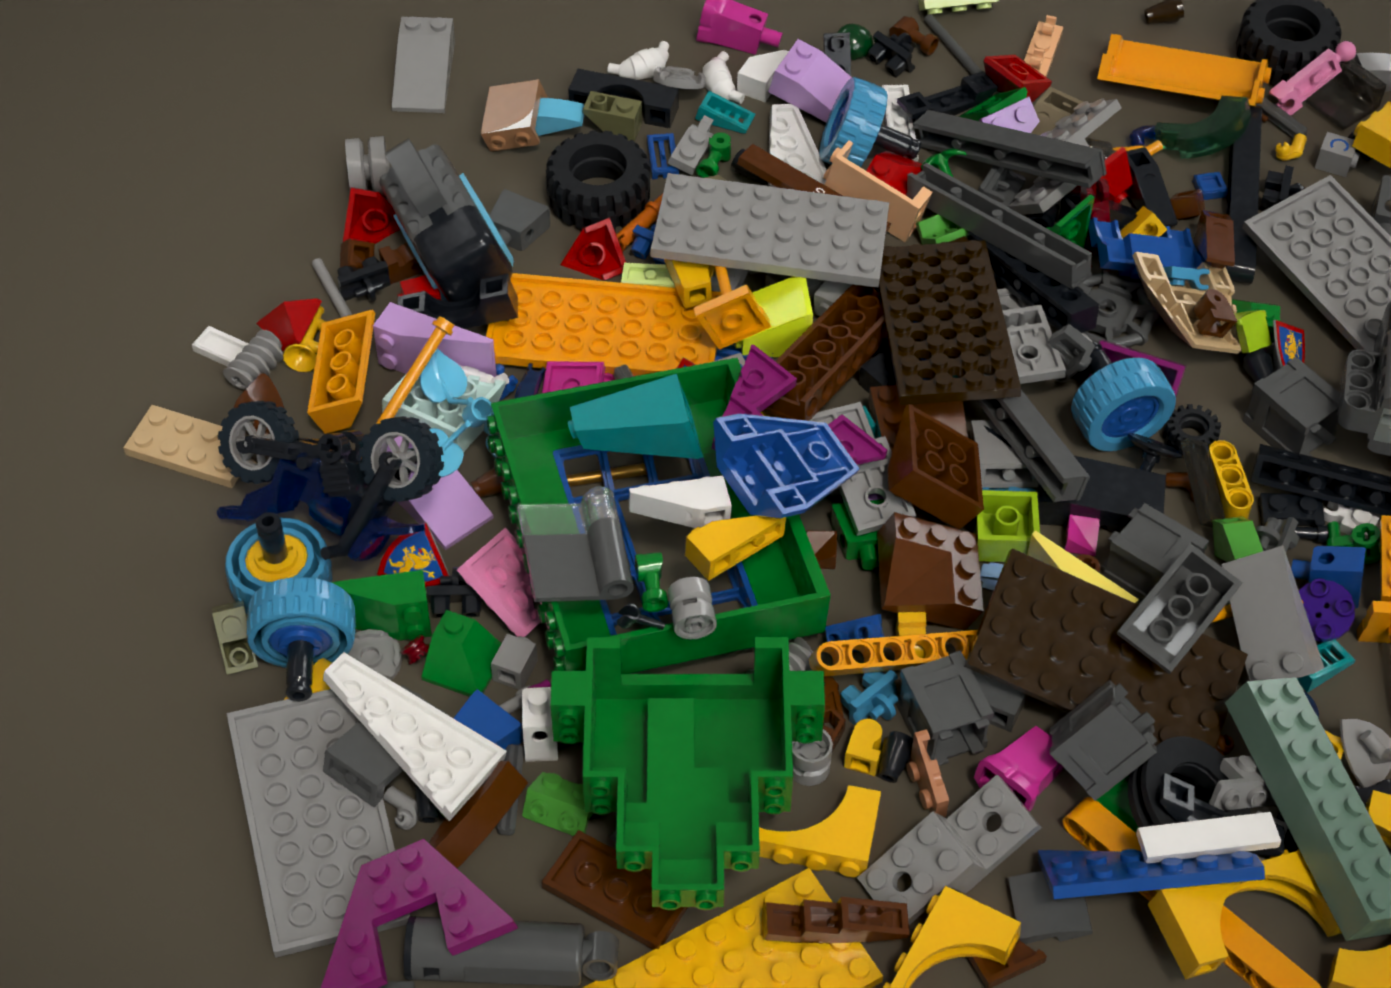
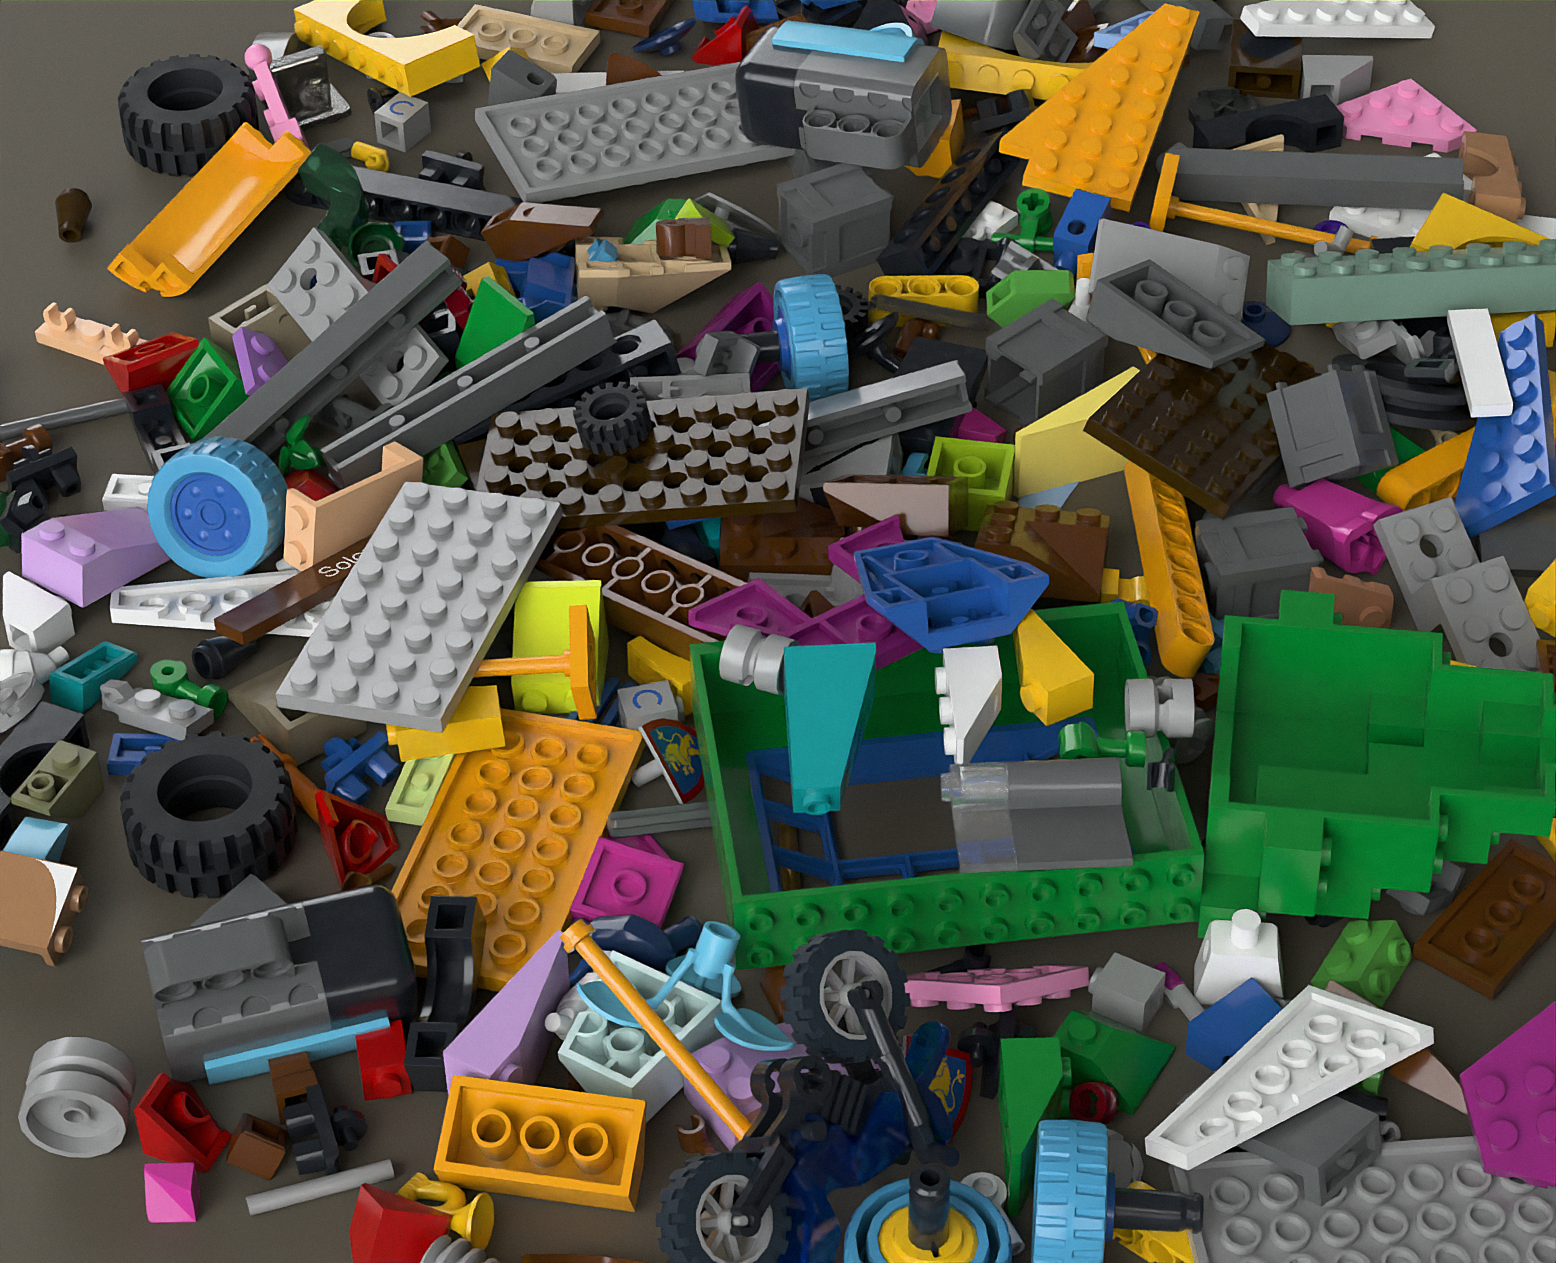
camera: 80 degrees left, 10 degrees down
(318, 227) = (171, 1192): none -> dark pink slope
(565, 266) = (356, 879): none -> reddish brown hand
(707, 384) = (754, 658): none -> light grey wheel
(963, 288) = (594, 413): none -> black tyre
(1177, 164) = (373, 238): none -> dark green hair

